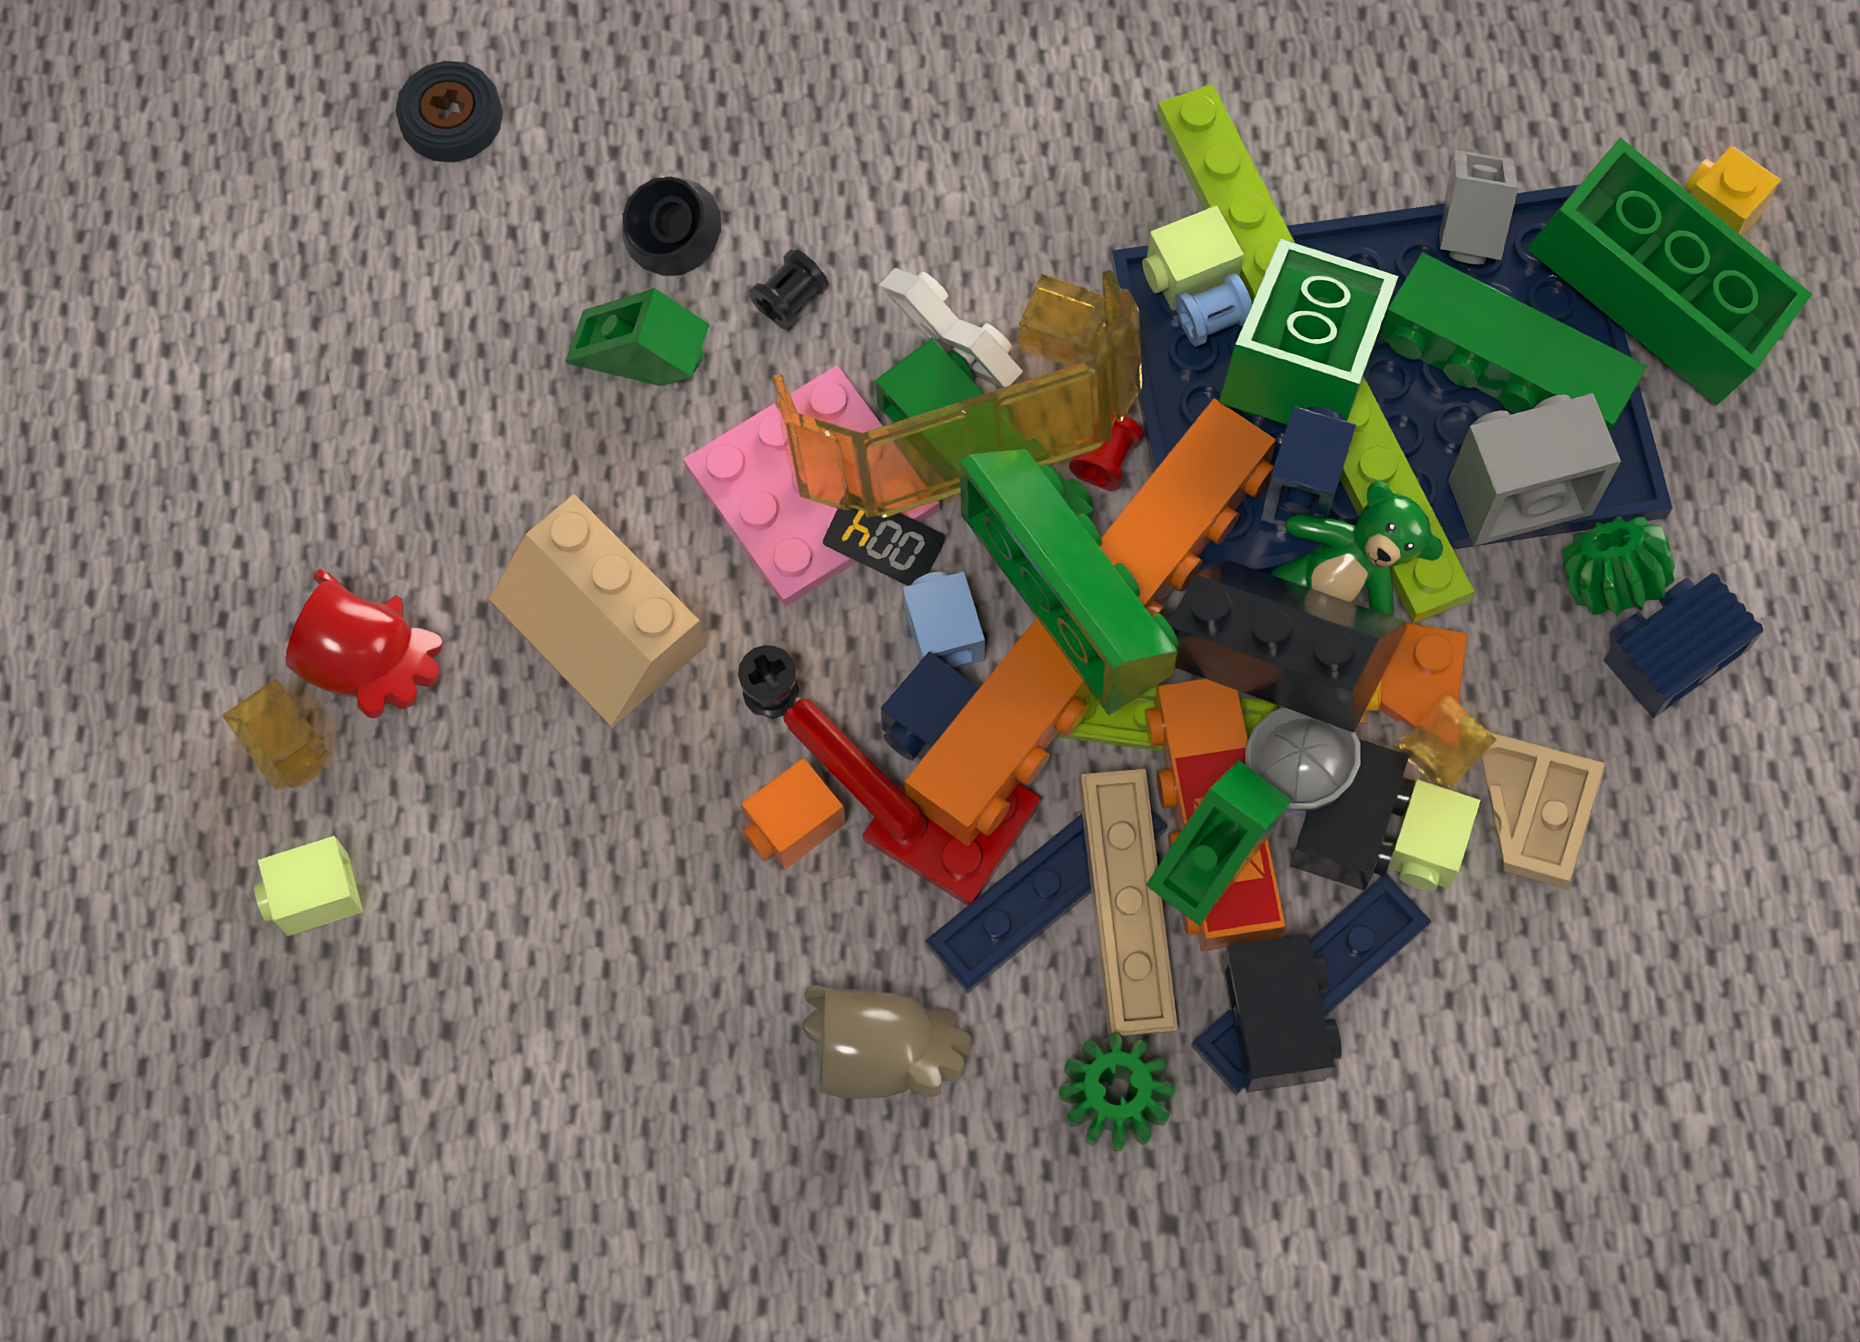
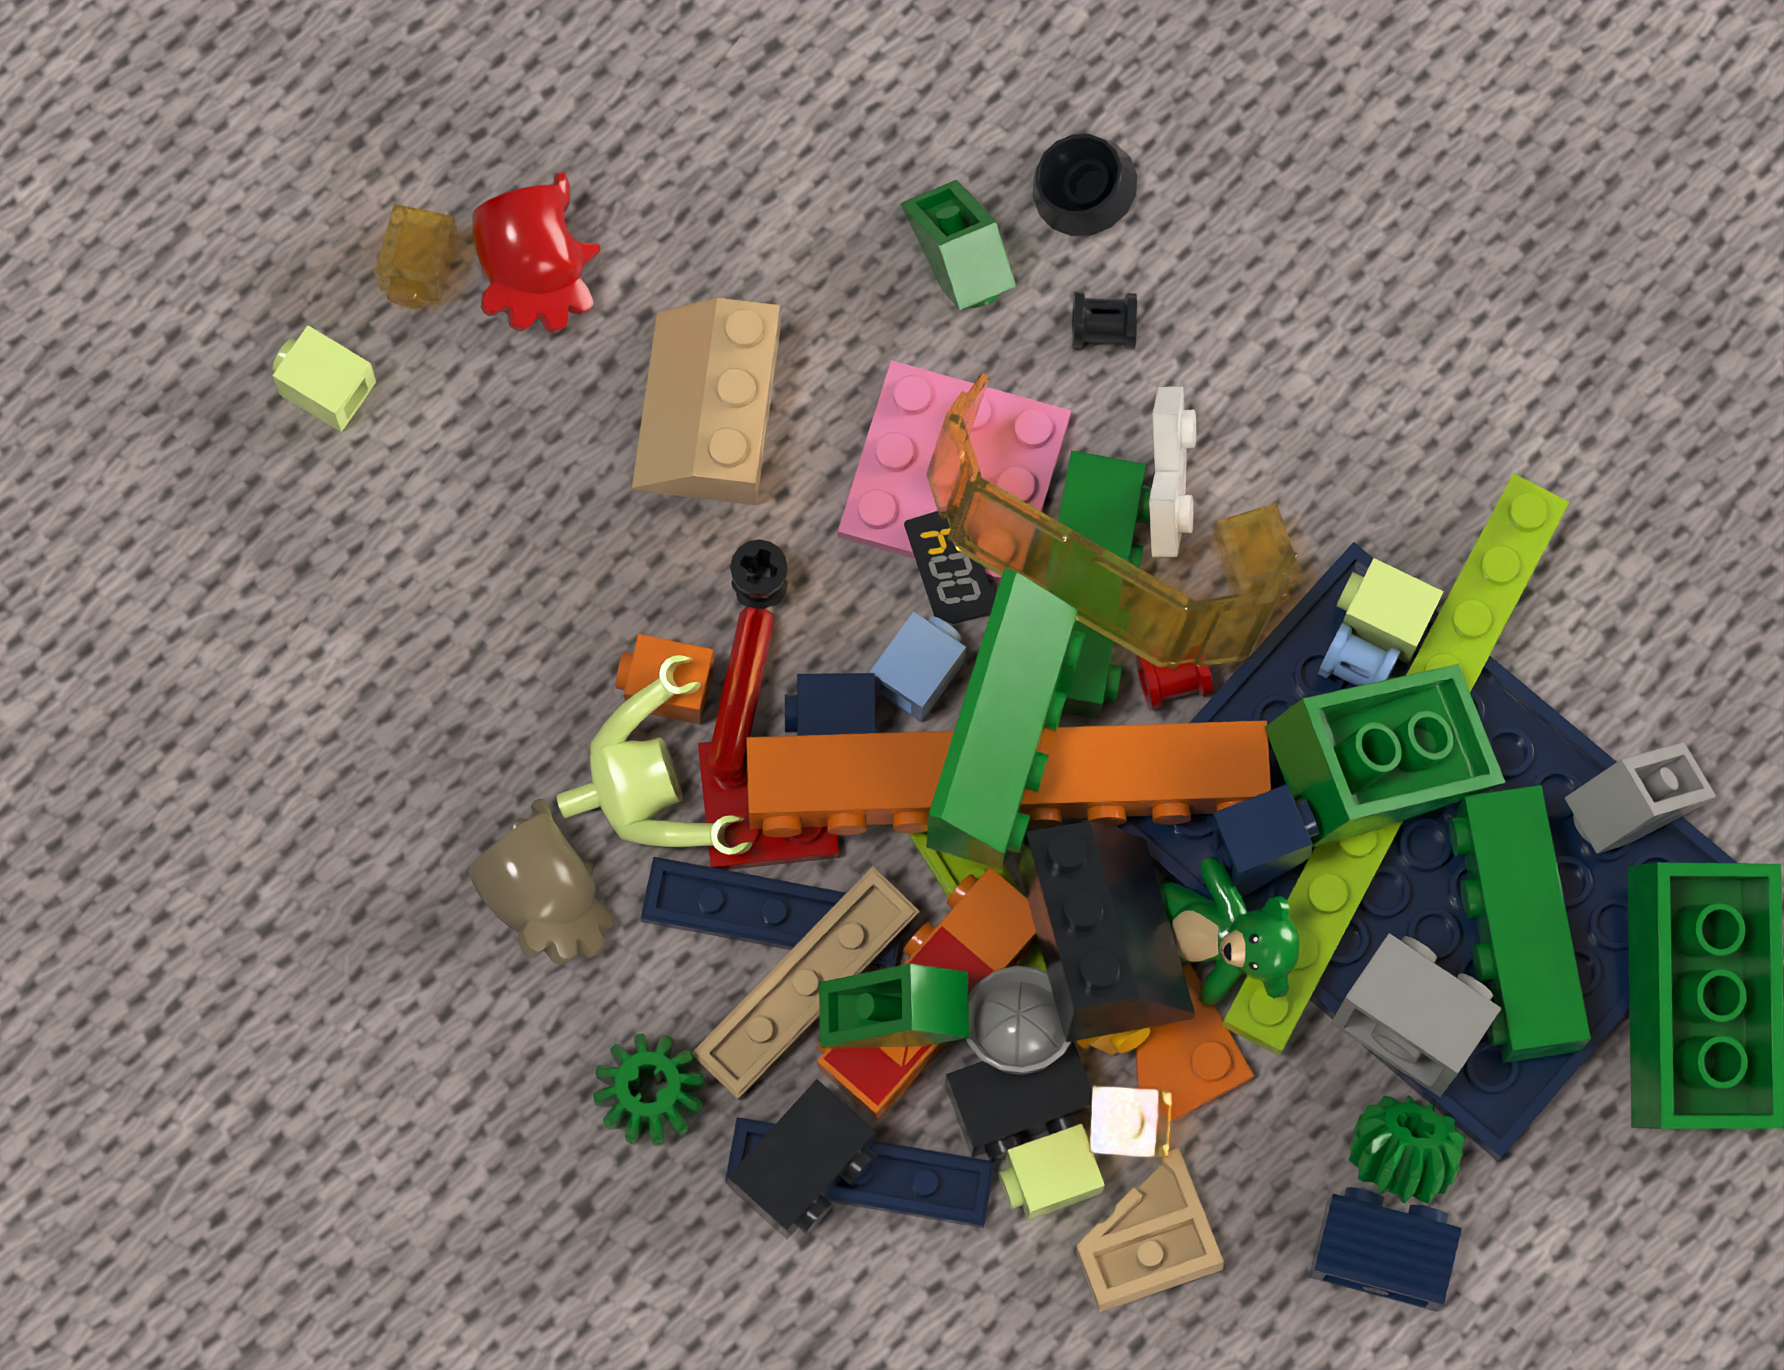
camera: 45 degrees right, 5 degrees up
(855, 904) = (639, 777): none -> yellowish green piece

